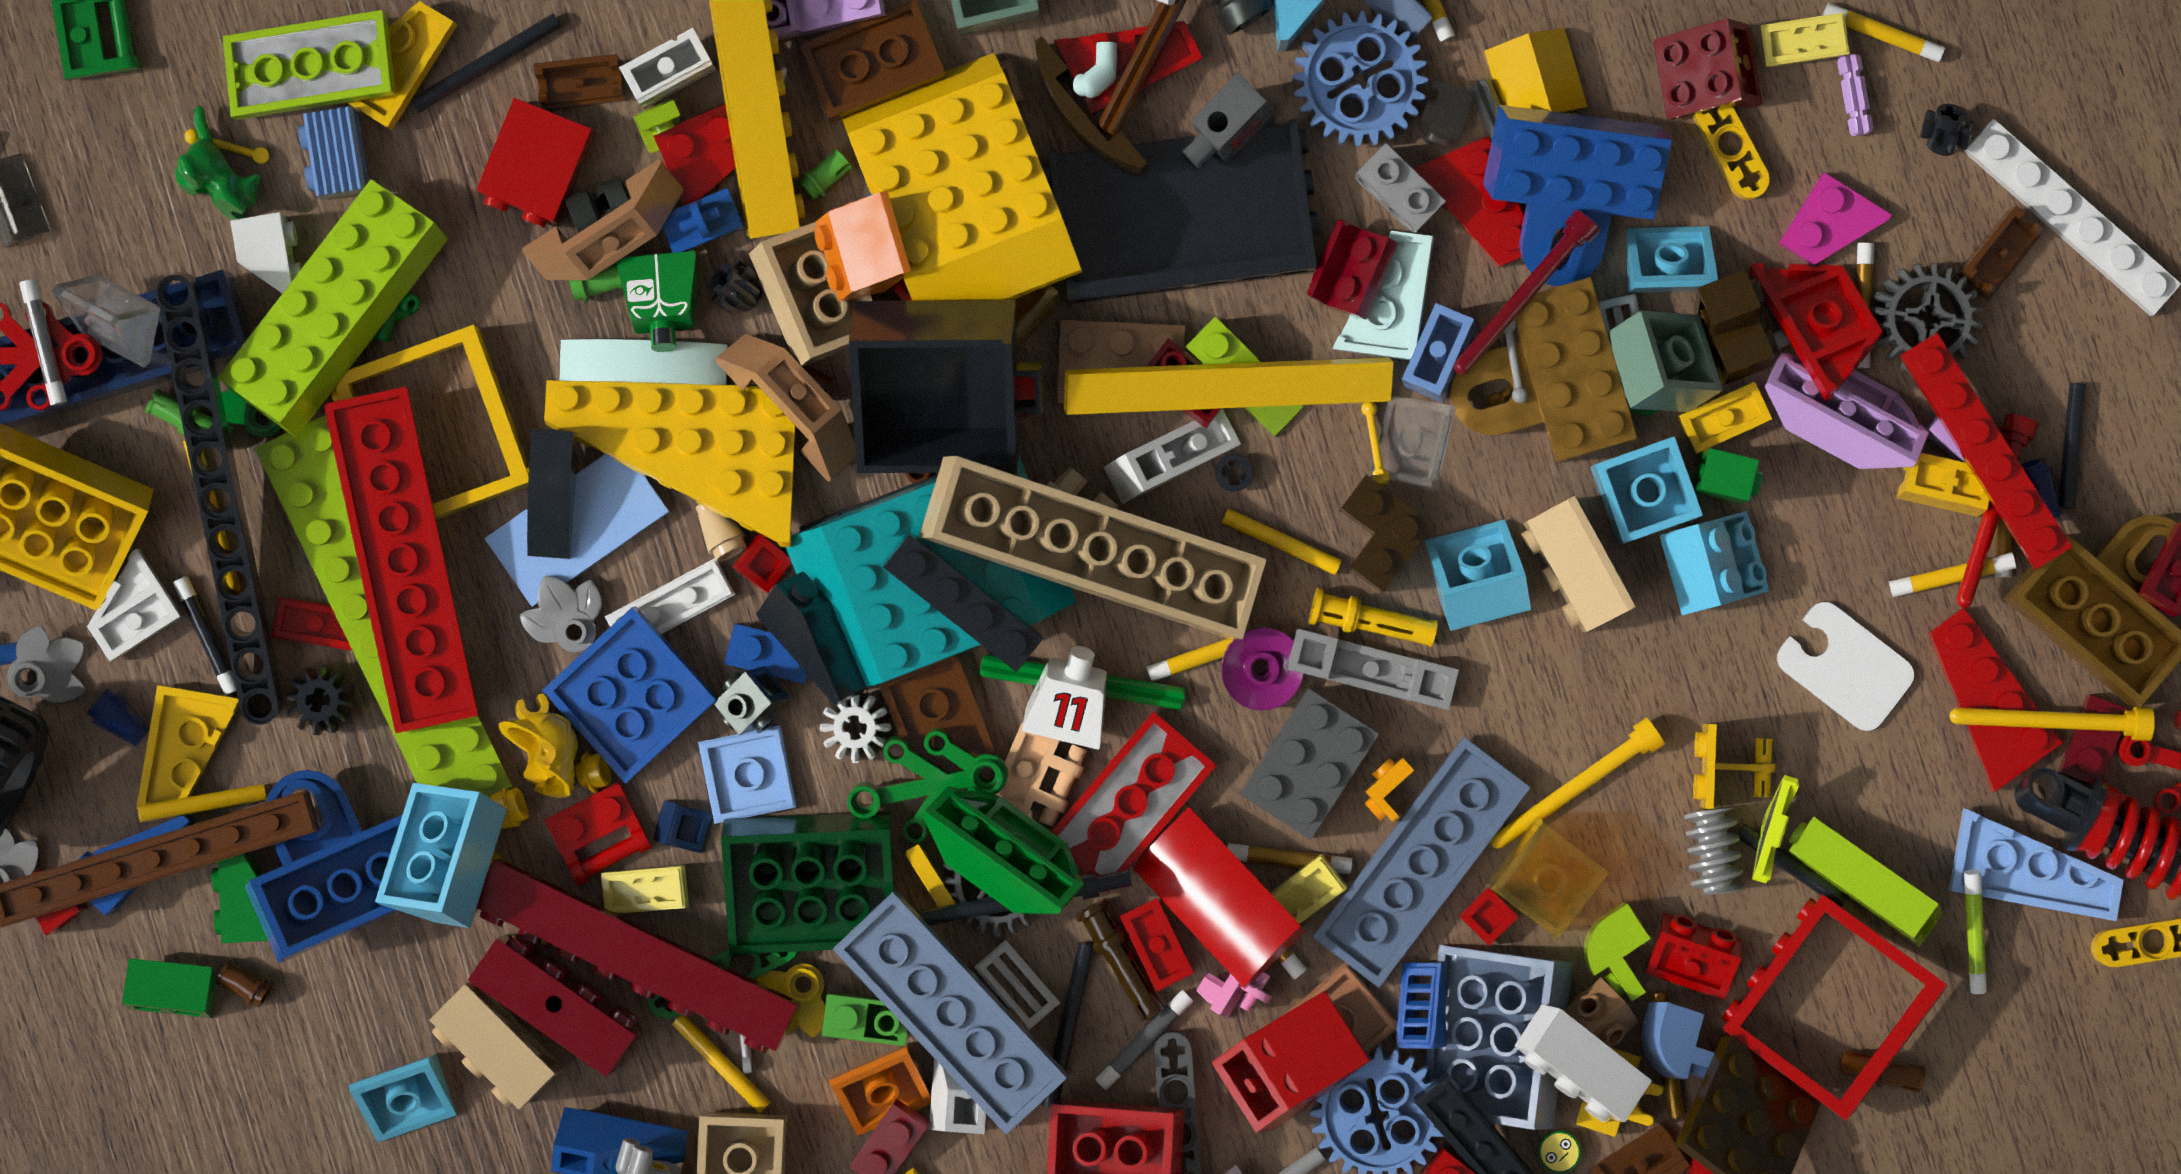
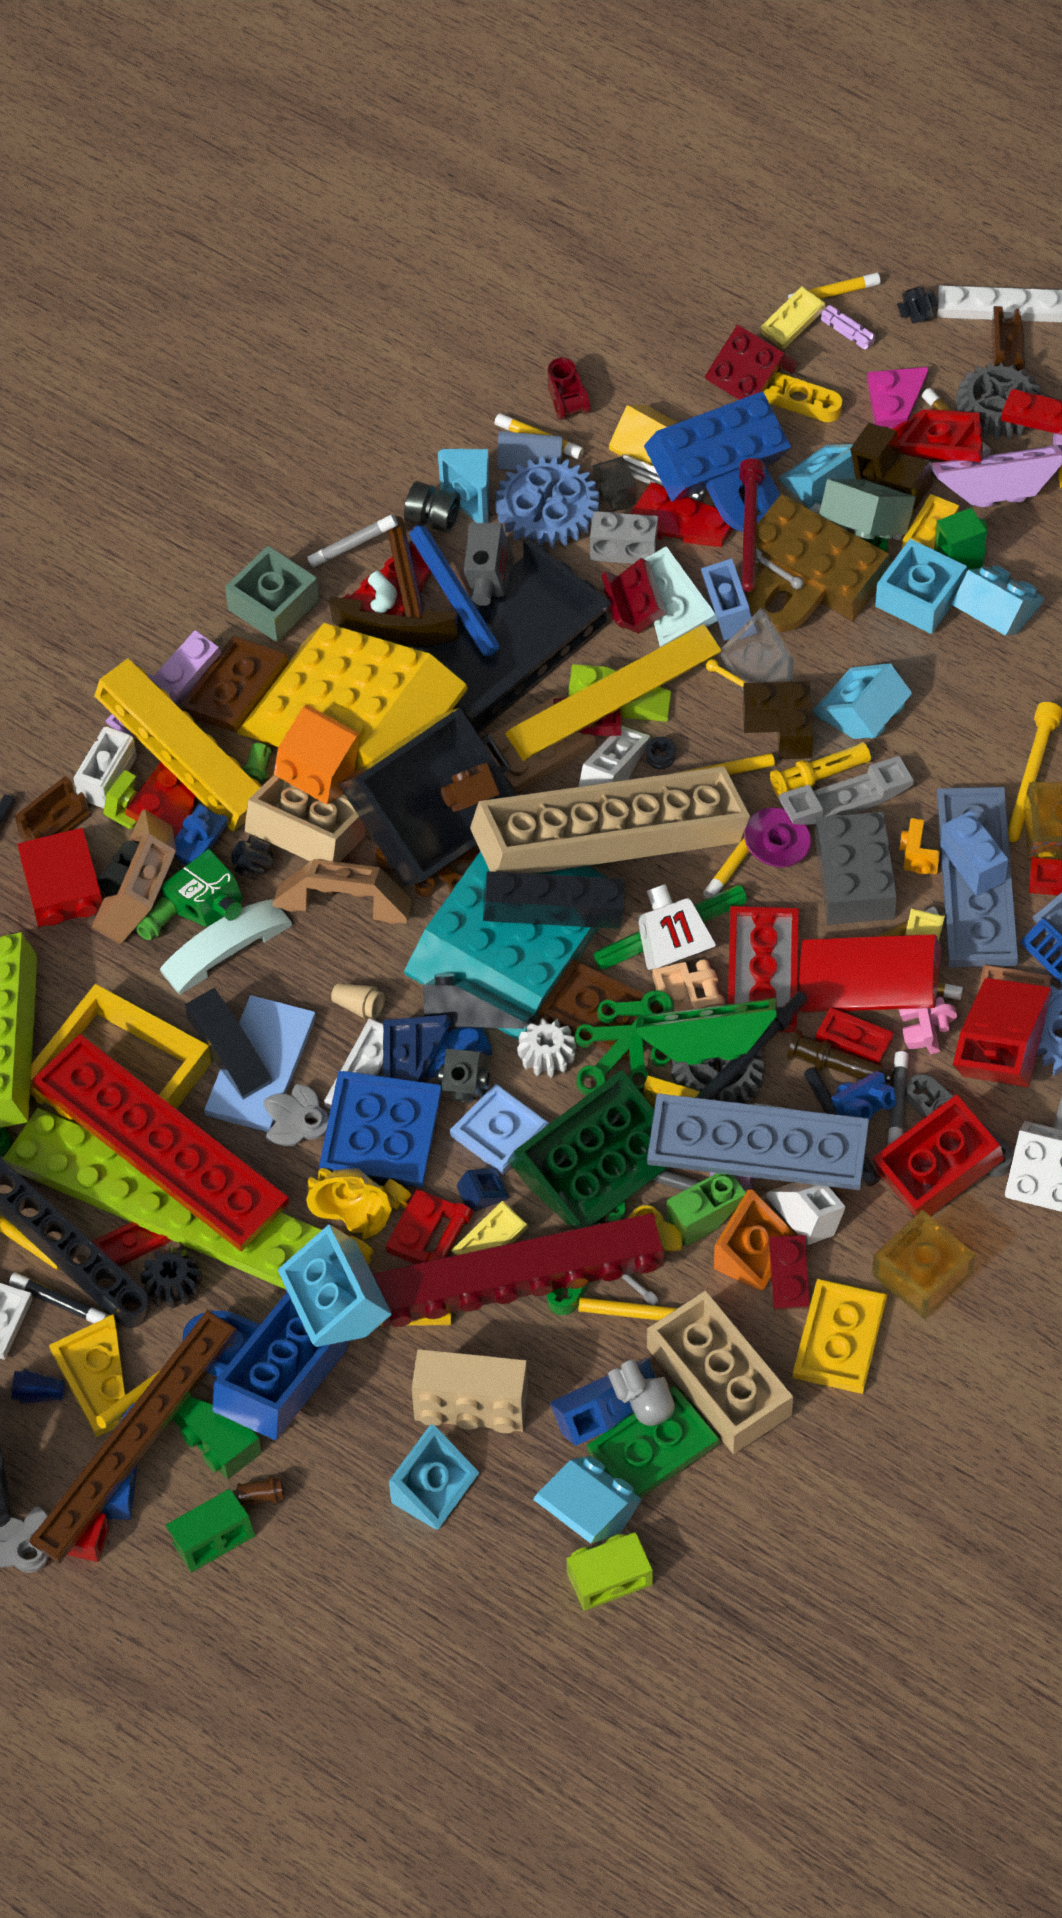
camera: 40 degrees left, 30 degrees down
(409, 305) = (40, 1018): green arm -> none
(529, 989) = (496, 1329): dark red brick -> none
(703, 440) = (315, 948): yellow wing -> none
(721, 631) = (412, 1045): none -> dark blue wing
(762, 563) = (403, 998): red plate -> none
(962, 429) = (469, 788): none -> reddish brown brick
(1100, 1020) = (864, 1097): none -> blue hips
(1175, 121) = (454, 590): none -> blue axle
(1427, 850) = (974, 853): none -> medium blue brick
(1577, 565) = (919, 646): tan slope -> none

